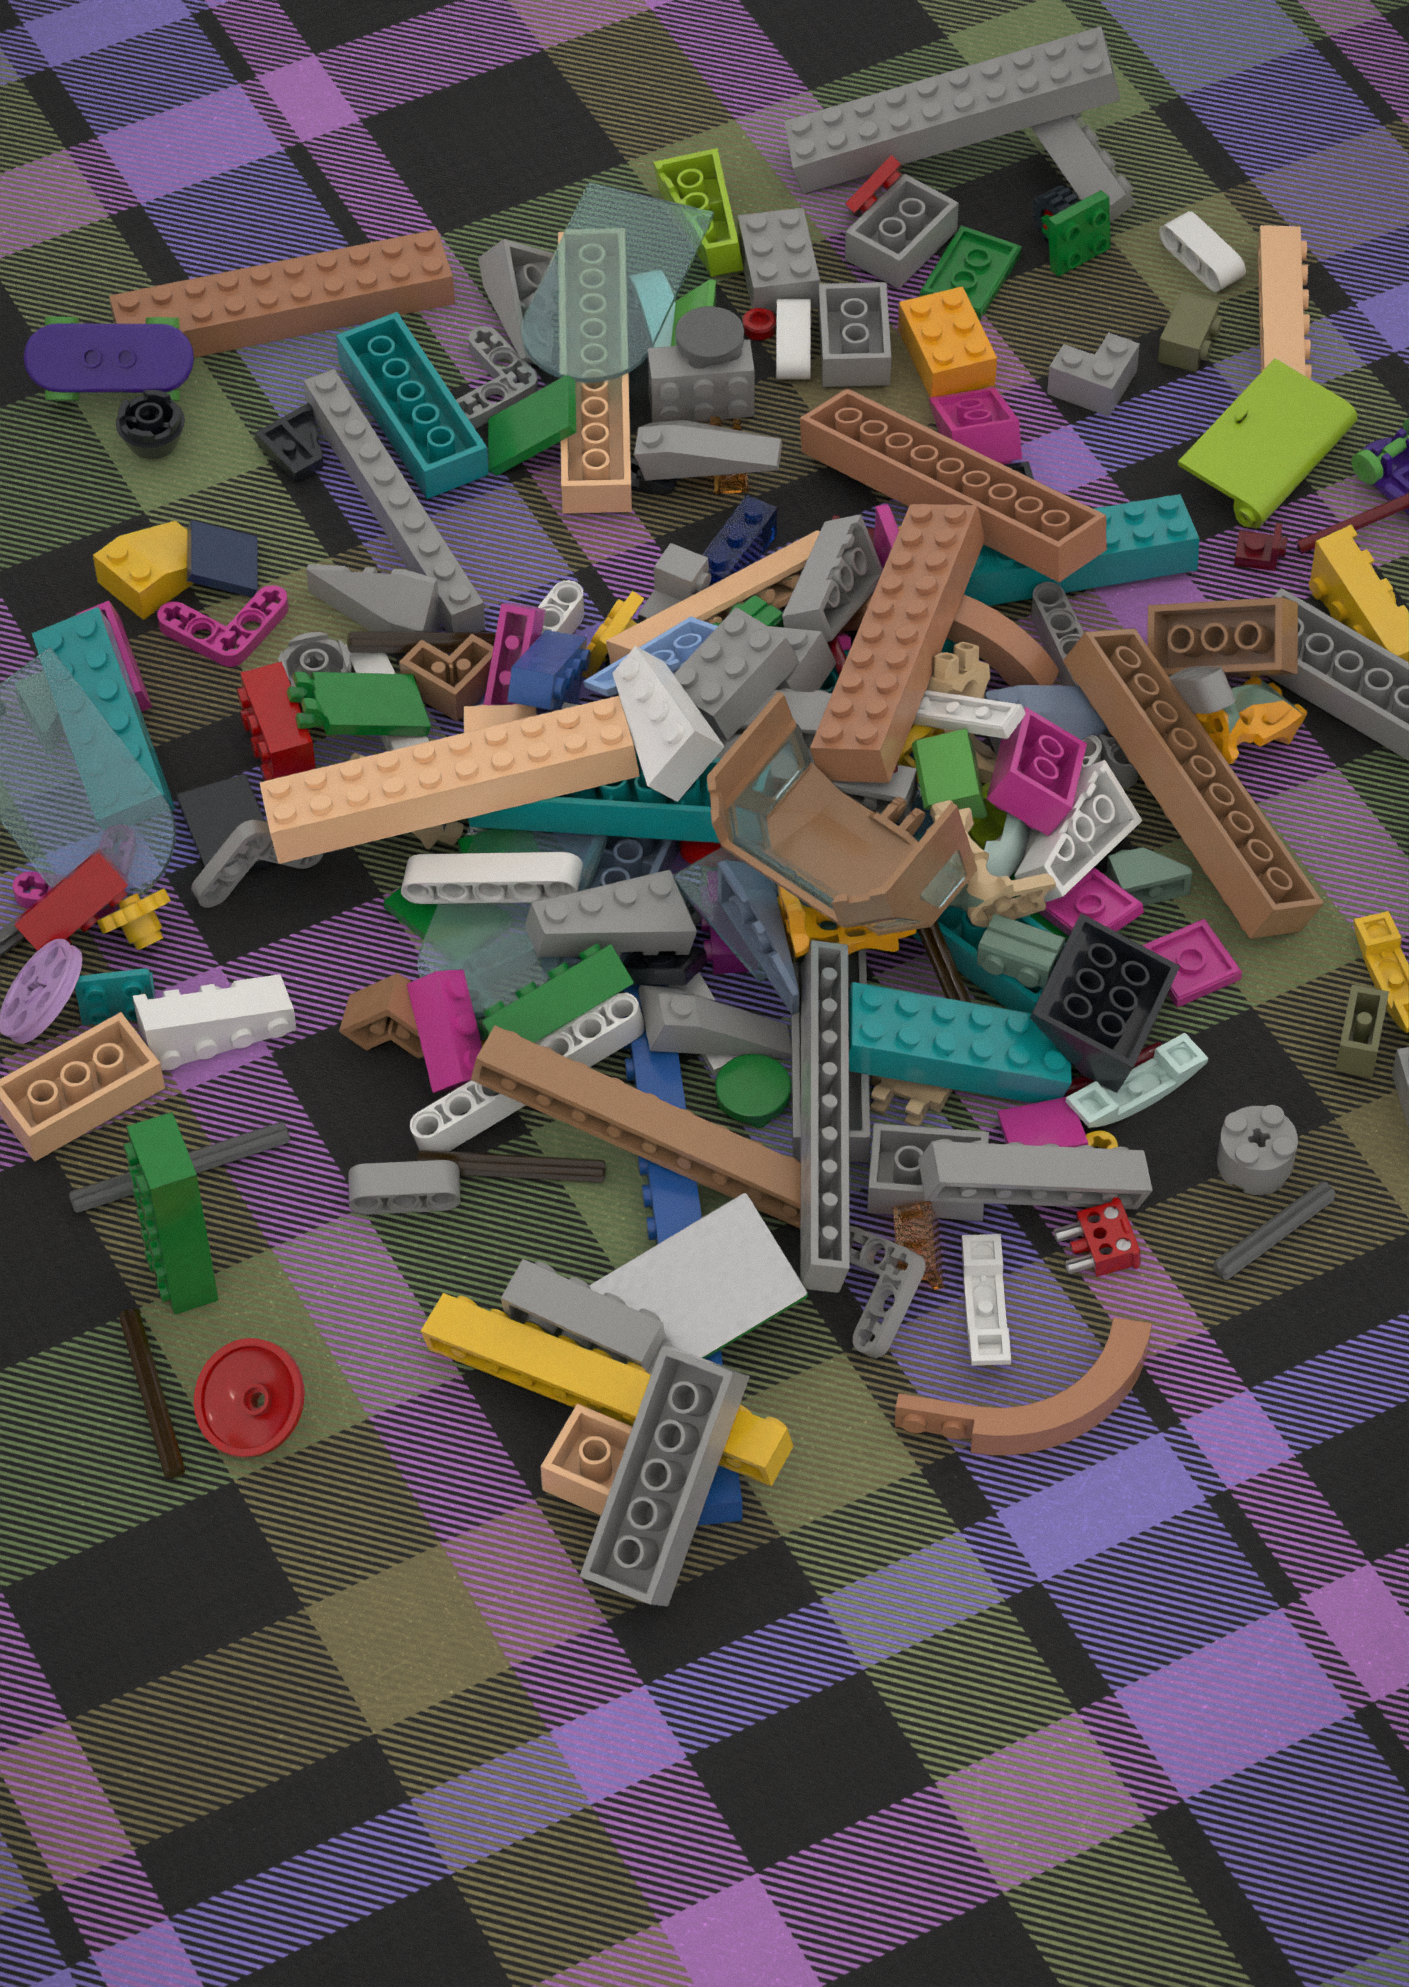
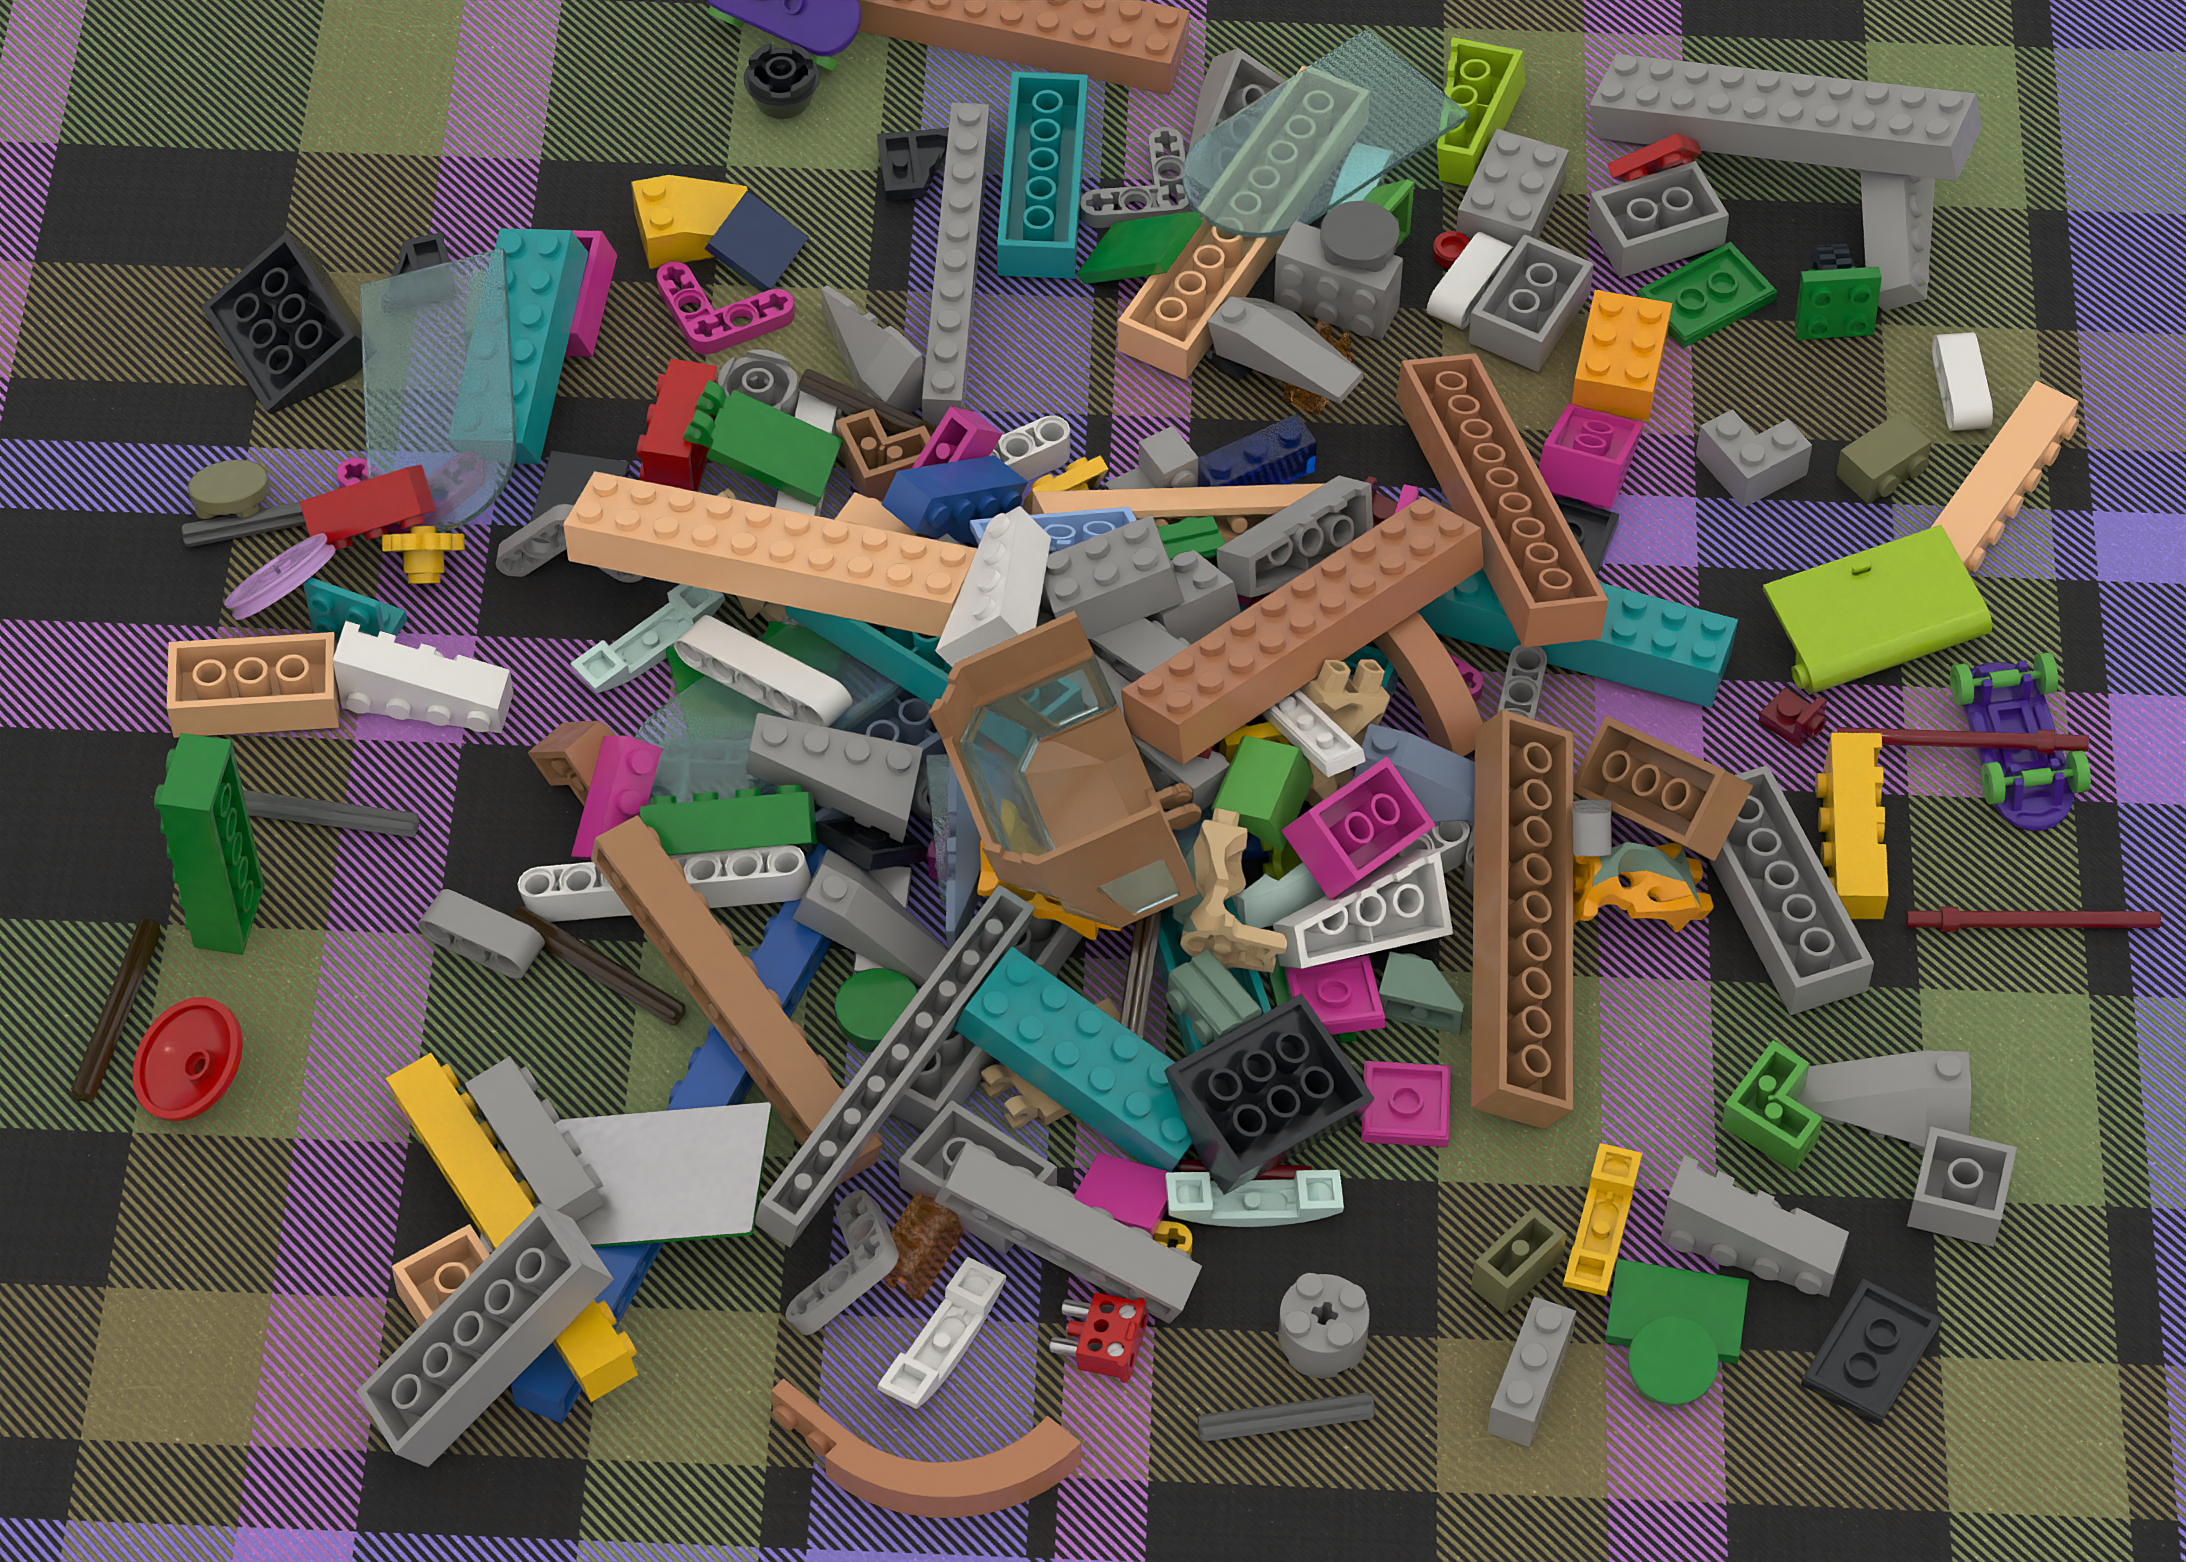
camera: 30 degrees right, 0 degrees up
(365, 901) = (646, 644): none -> light aqua slope

